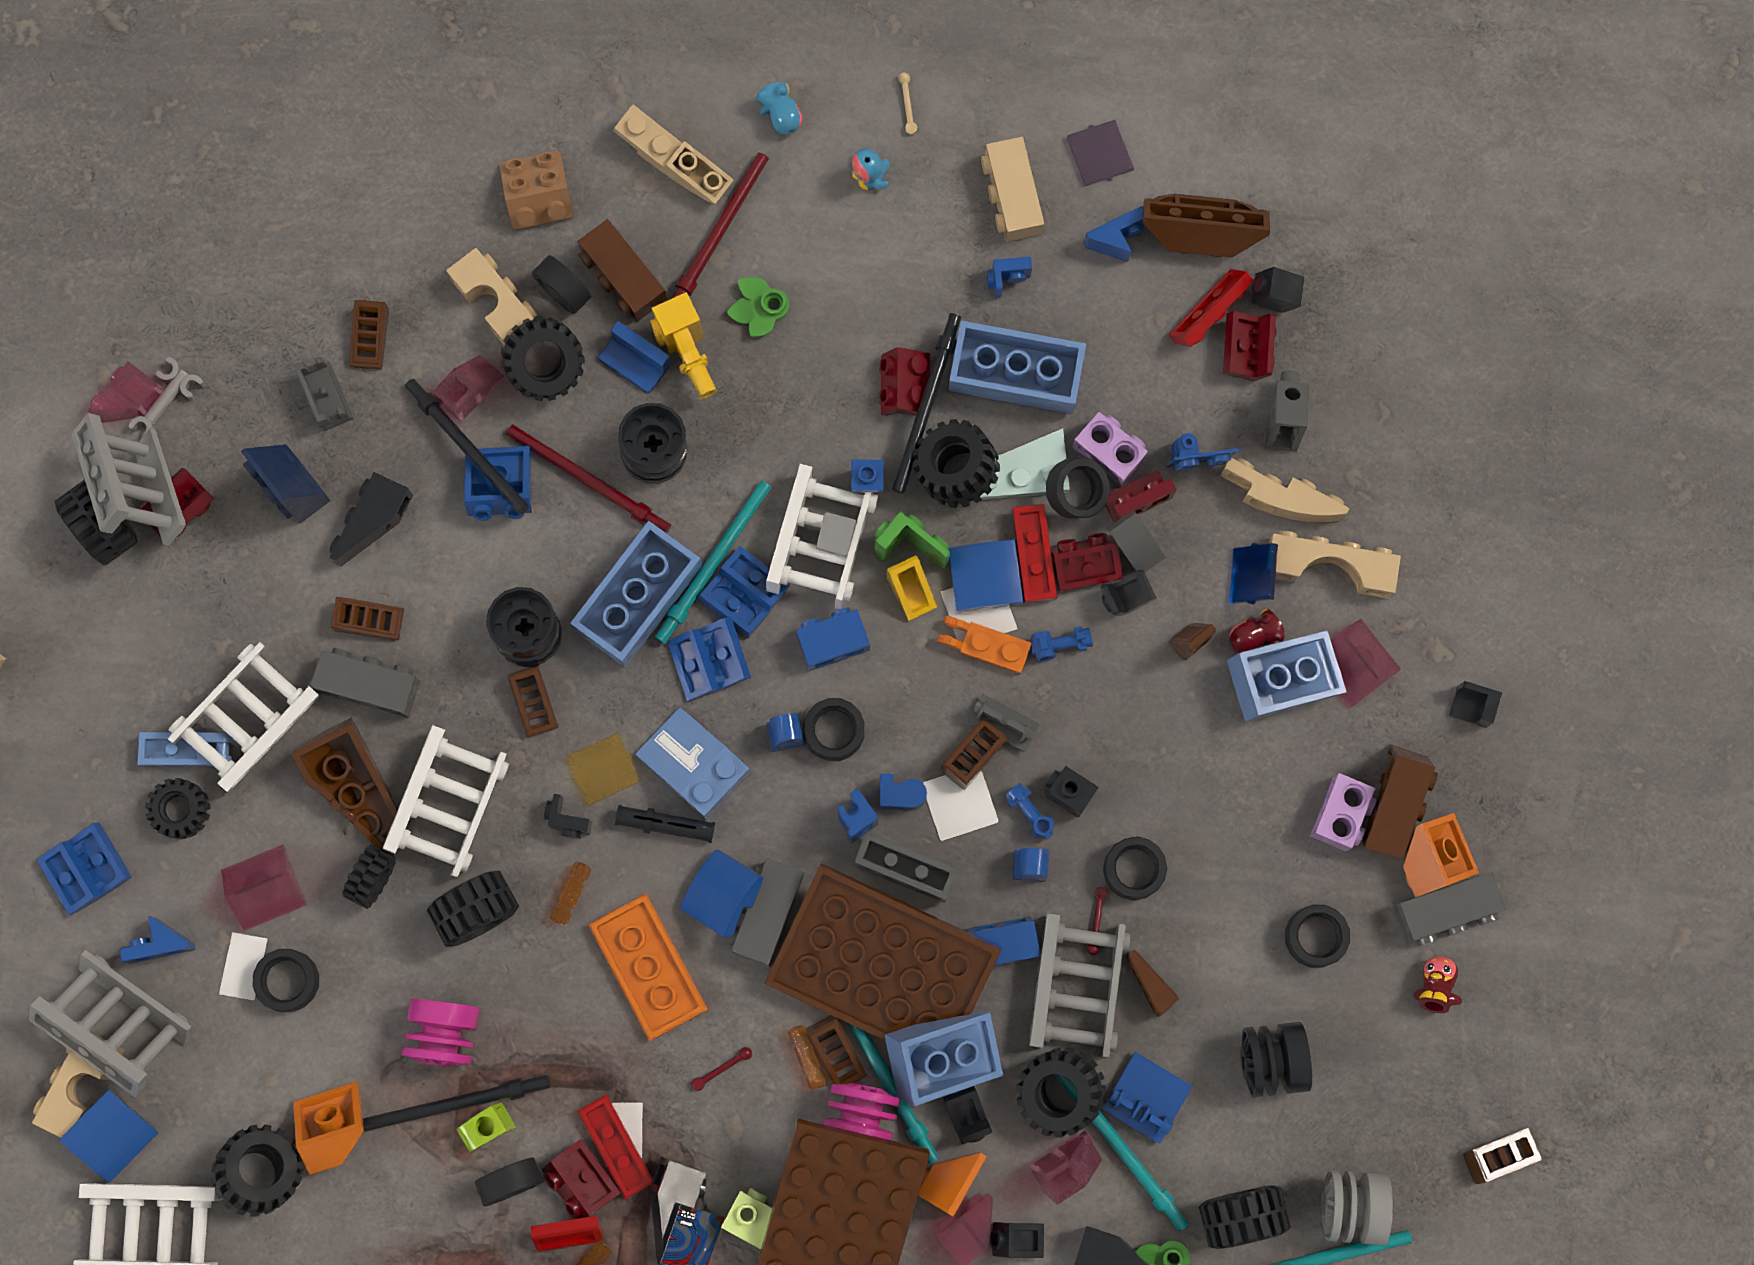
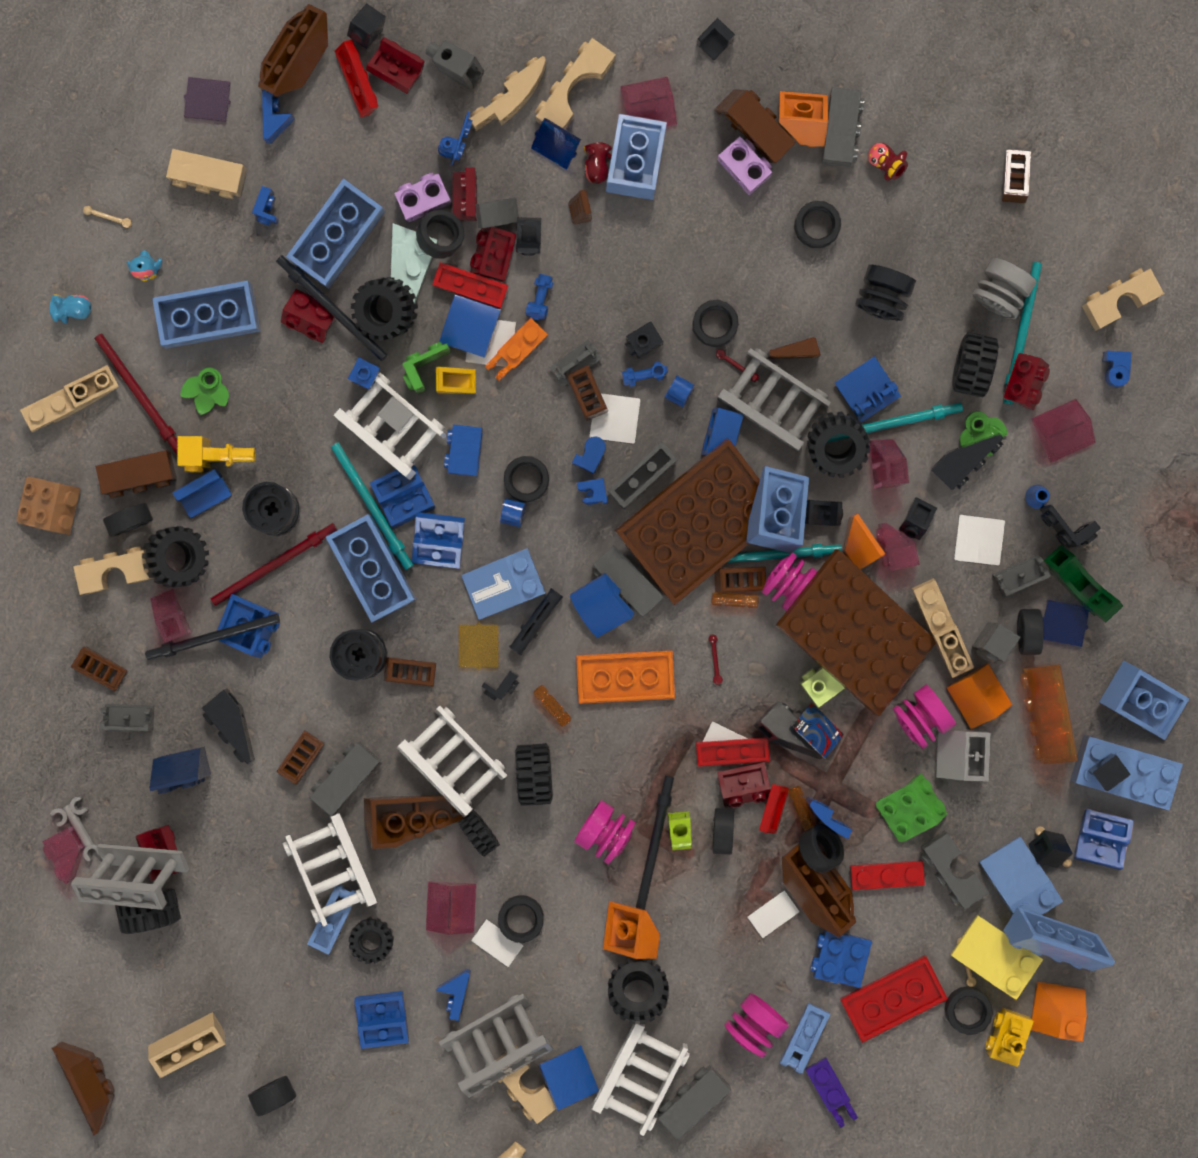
camera: 60 degrees left, 10 degrees up
(848, 264) = (206, 314): none -> medium blue brick

